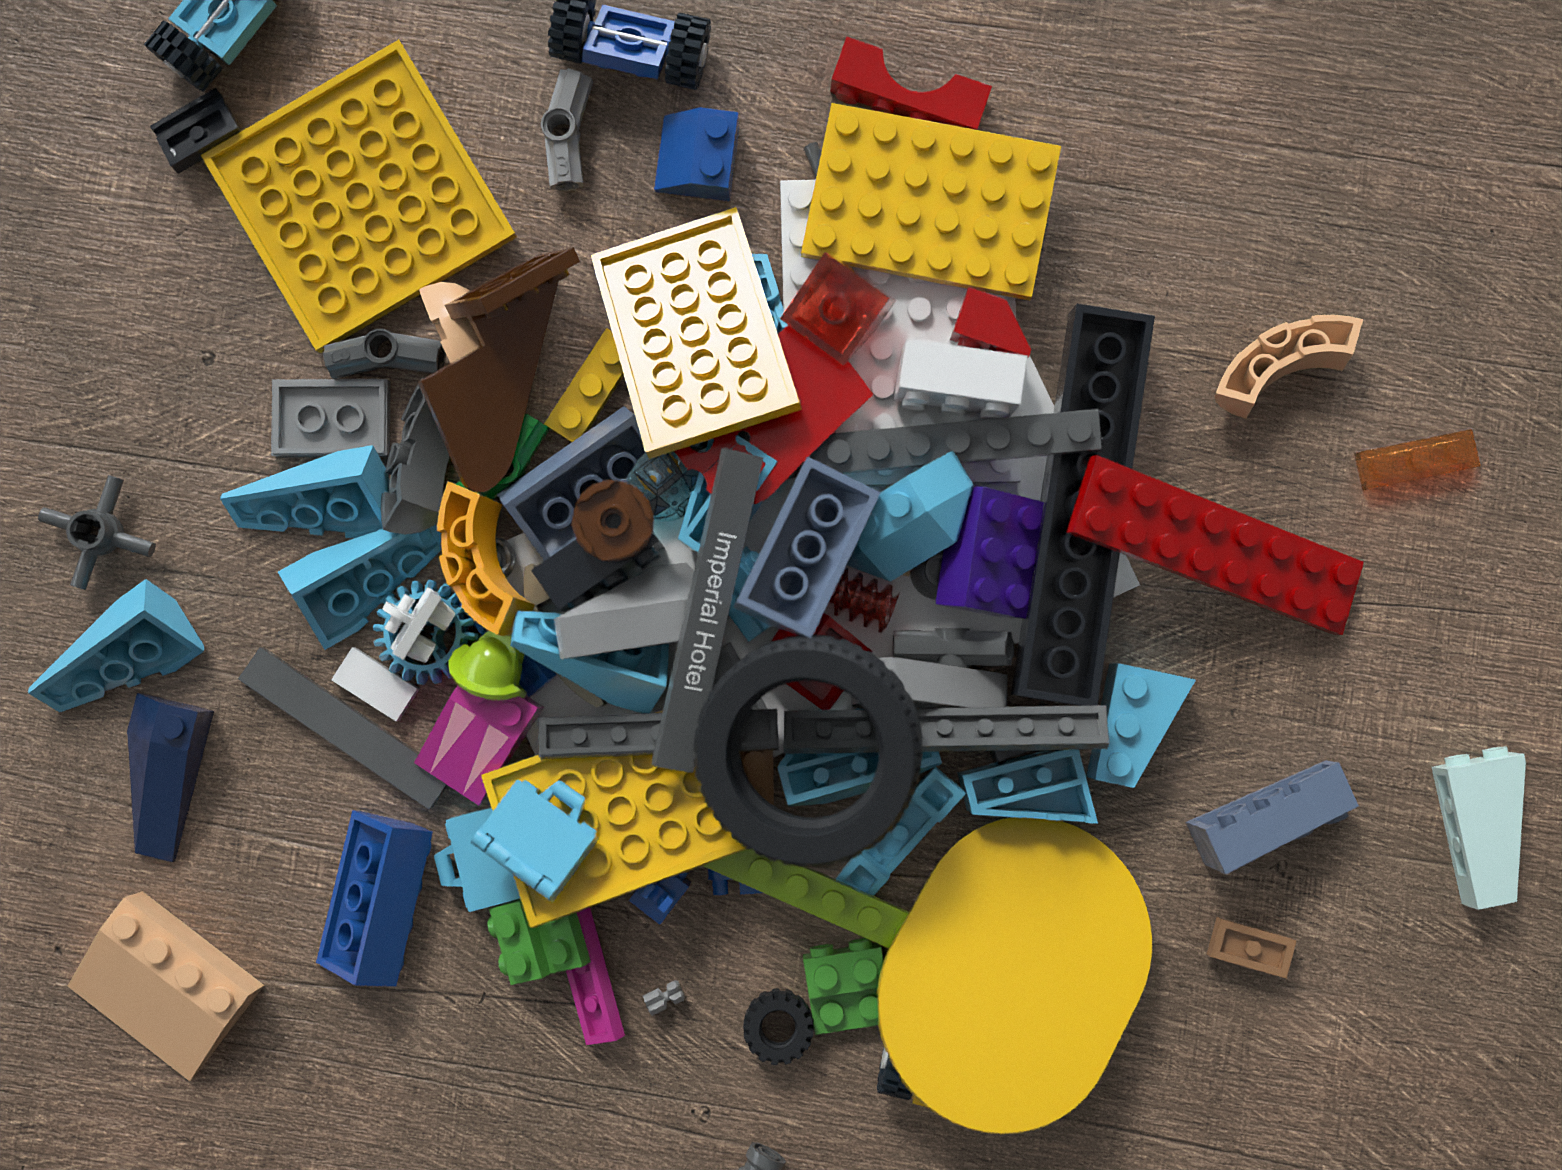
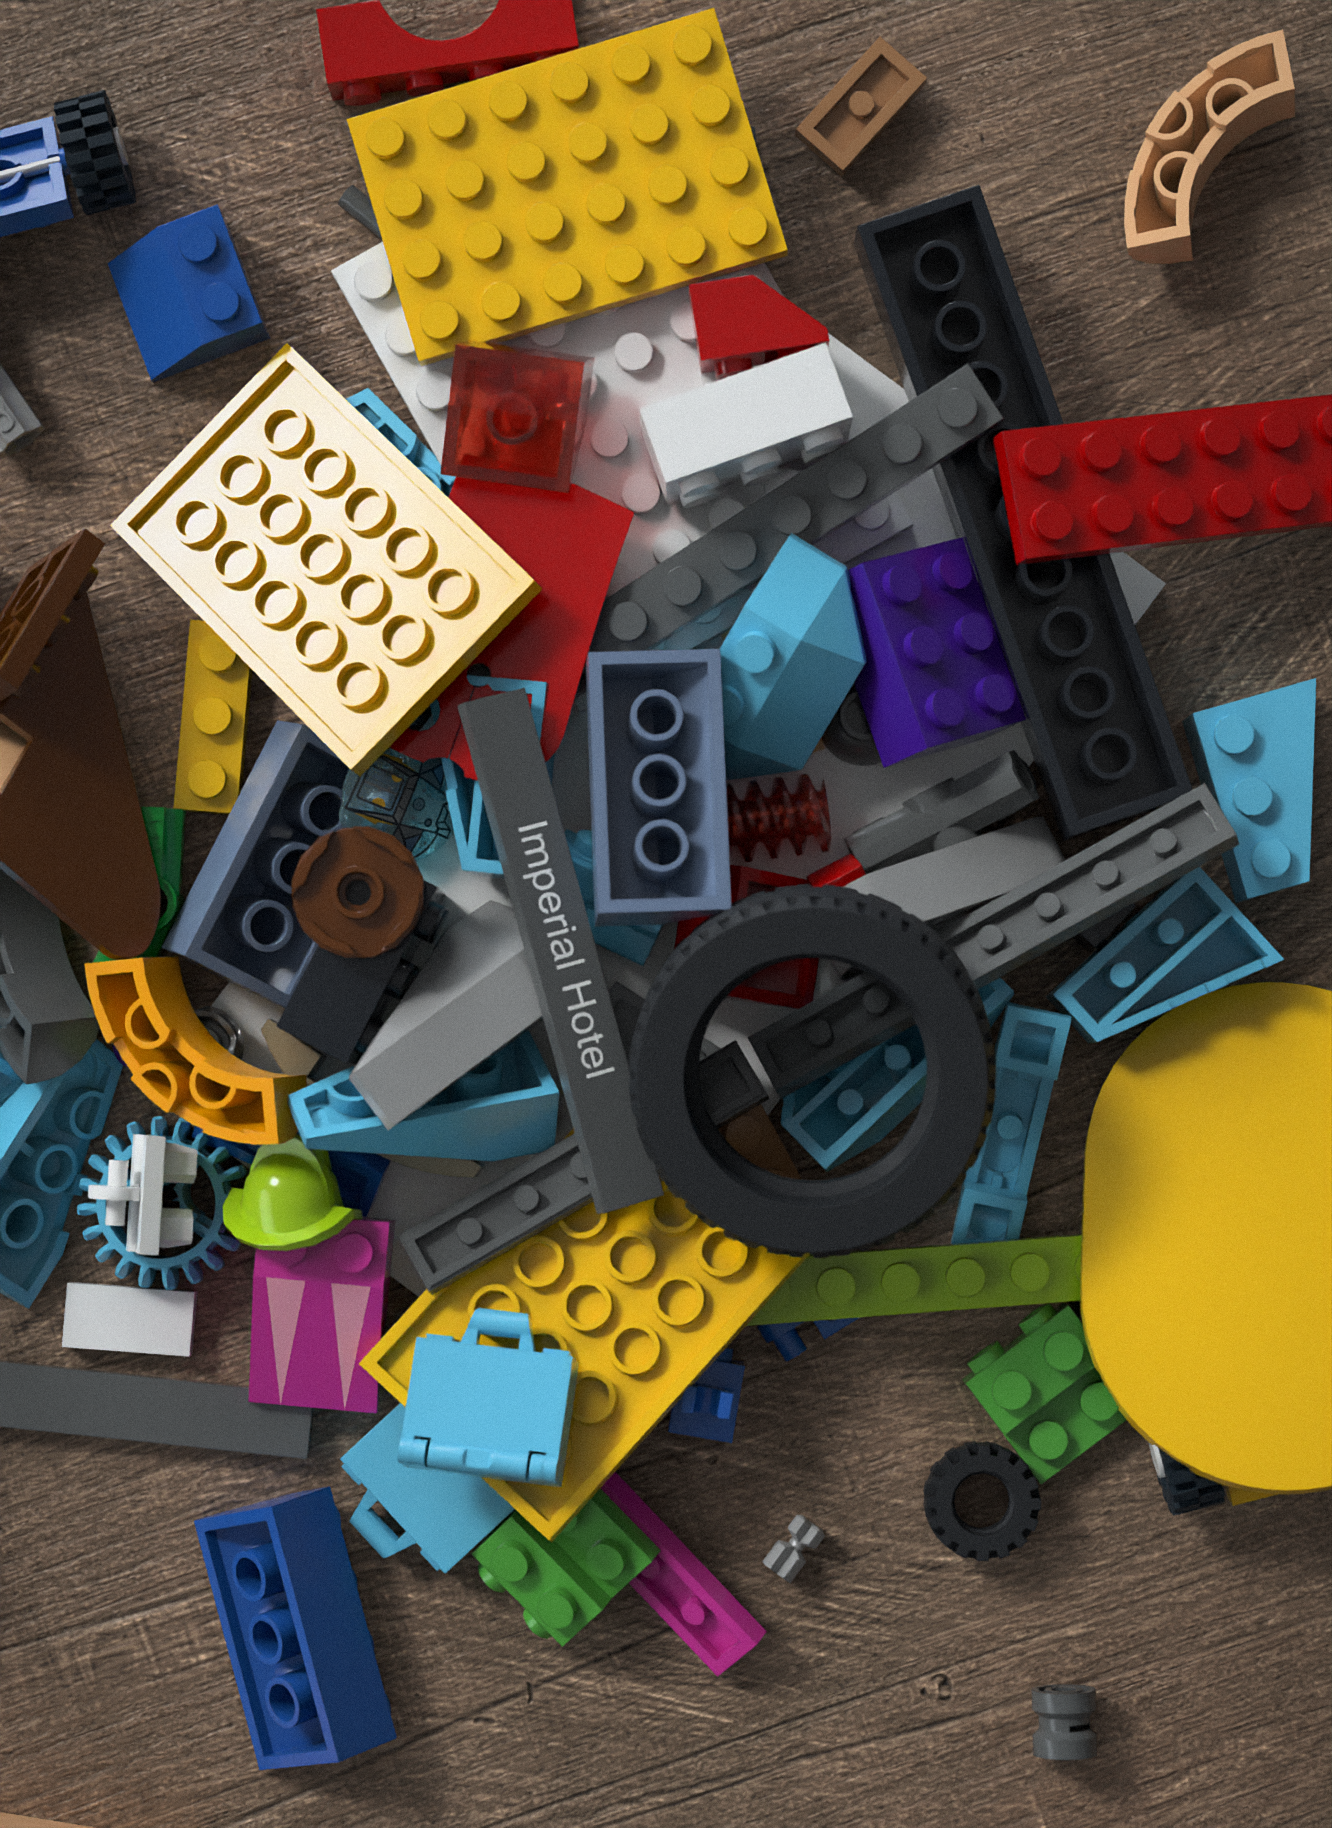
camera: 25 degrees left, 0 degrees up
(879, 648) = (837, 873): none -> red piece
(1111, 242) = (860, 106): none -> medium nougat plate

